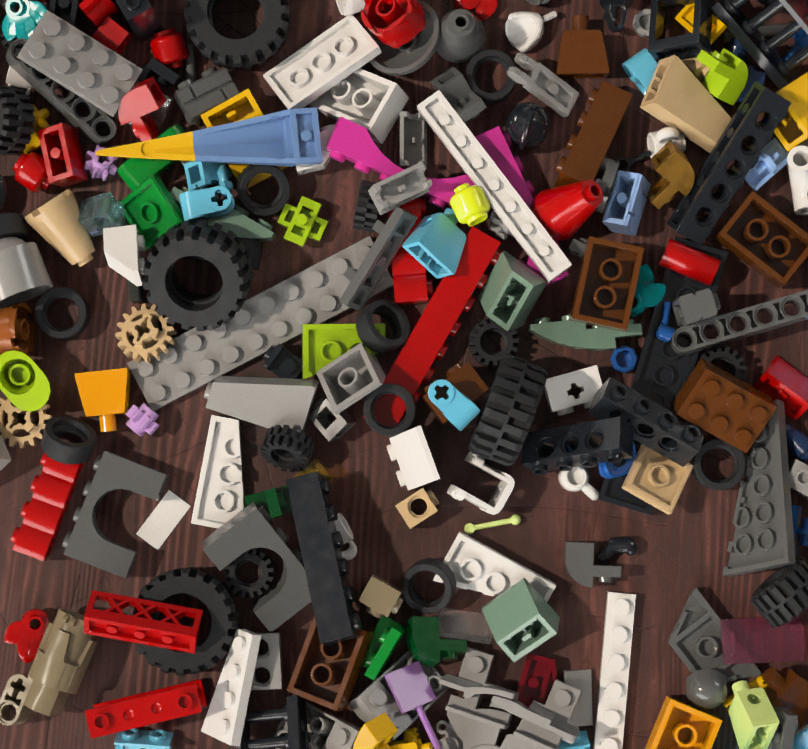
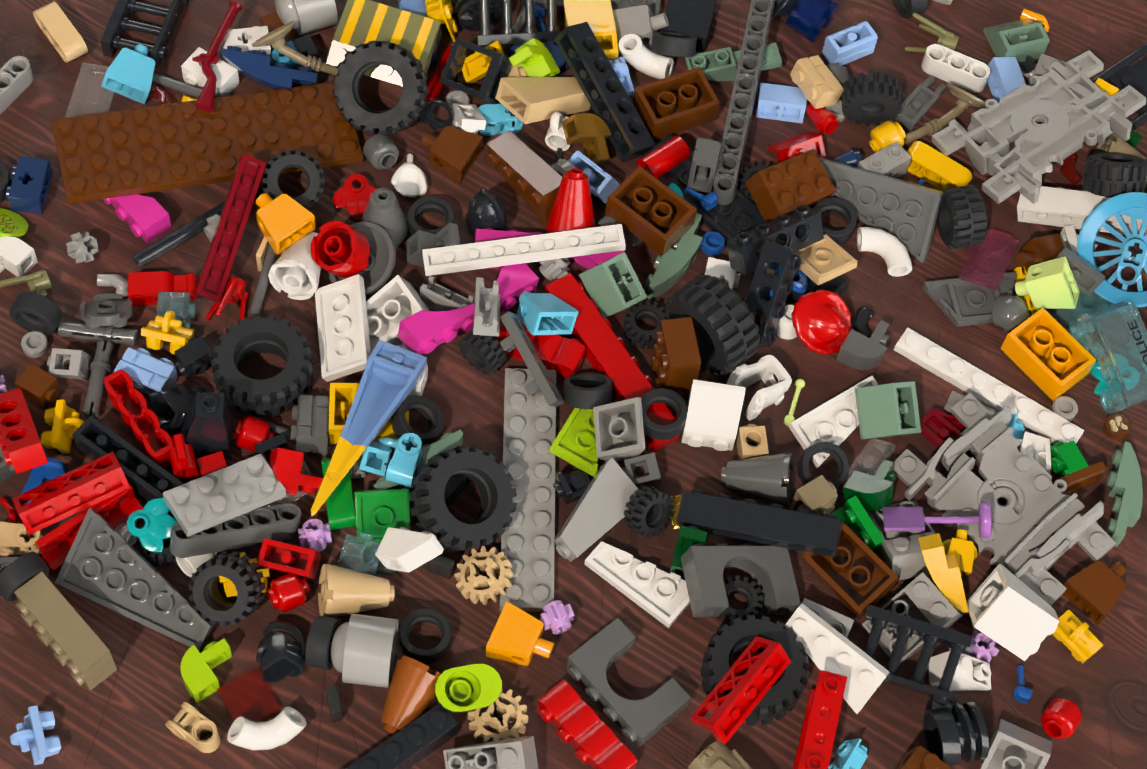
camera: 70 degrees left, 25 degrees down
(64, 451) = (542, 681): black tyre -> none
(163, 520) = (653, 652): white sticker -> none
(303, 220) = (460, 408): lime piece -> none
(384, 534) = (761, 476): none -> dark grey cone
(456, 407) = (690, 341): medium azure piece -> none
(470, 204) = (529, 272): neon yellow head -> none
(544, 85) = (461, 185): light grey hinge -> none
(585, 510) = (821, 321): none -> red piece
(625, 45) = (468, 118): none -> white slope
(718, 531) = (887, 247): none -> white cylinder

